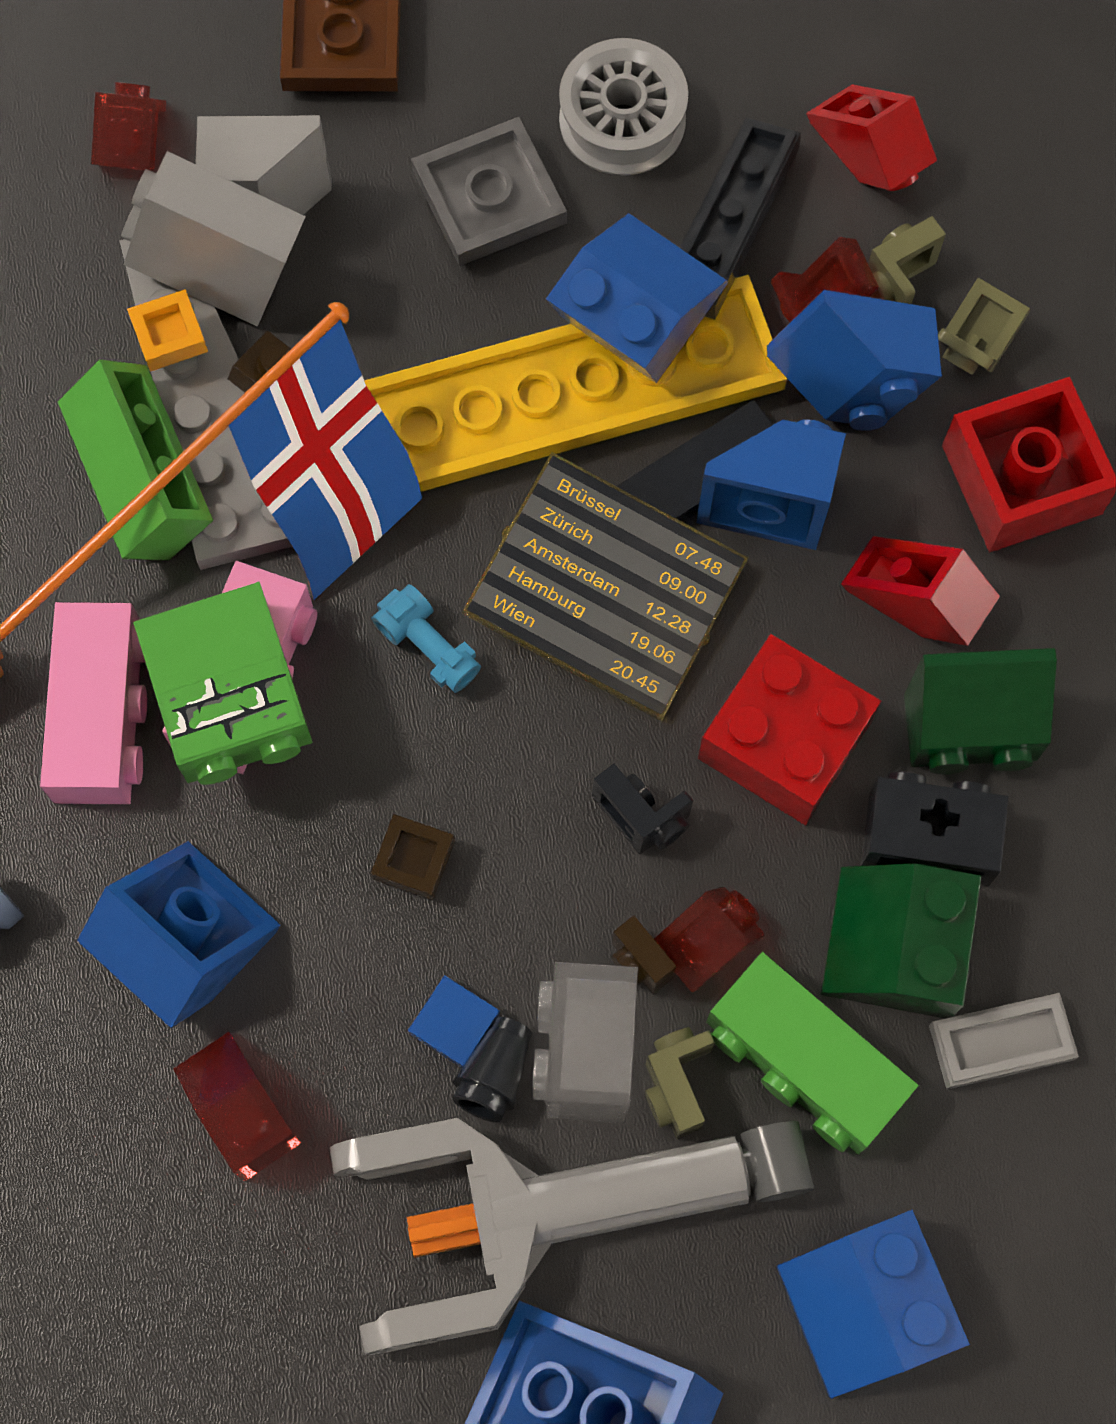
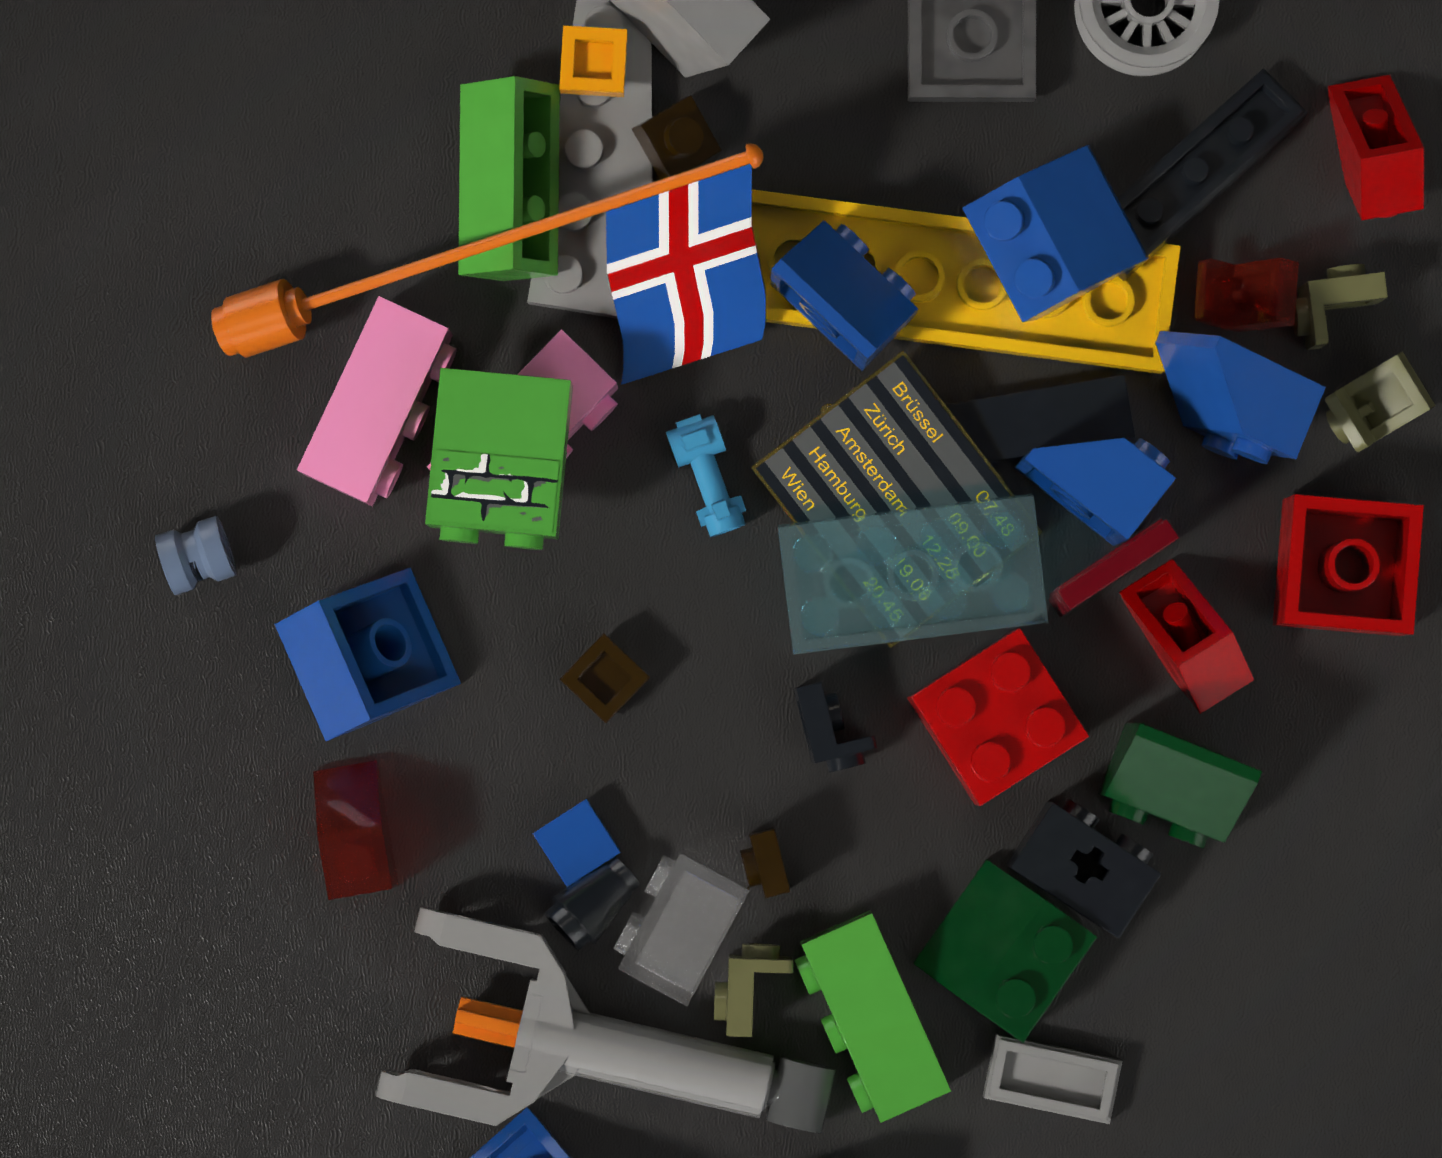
camera: 20 degrees right, 15 degrees up
(473, 422) = (844, 292): none -> blue slope
(650, 636) = (912, 573): none -> clear light blue plate
(710, 935) = (836, 871): clear red bracket -> none
(826, 549) = (1112, 566): none -> dark red tile

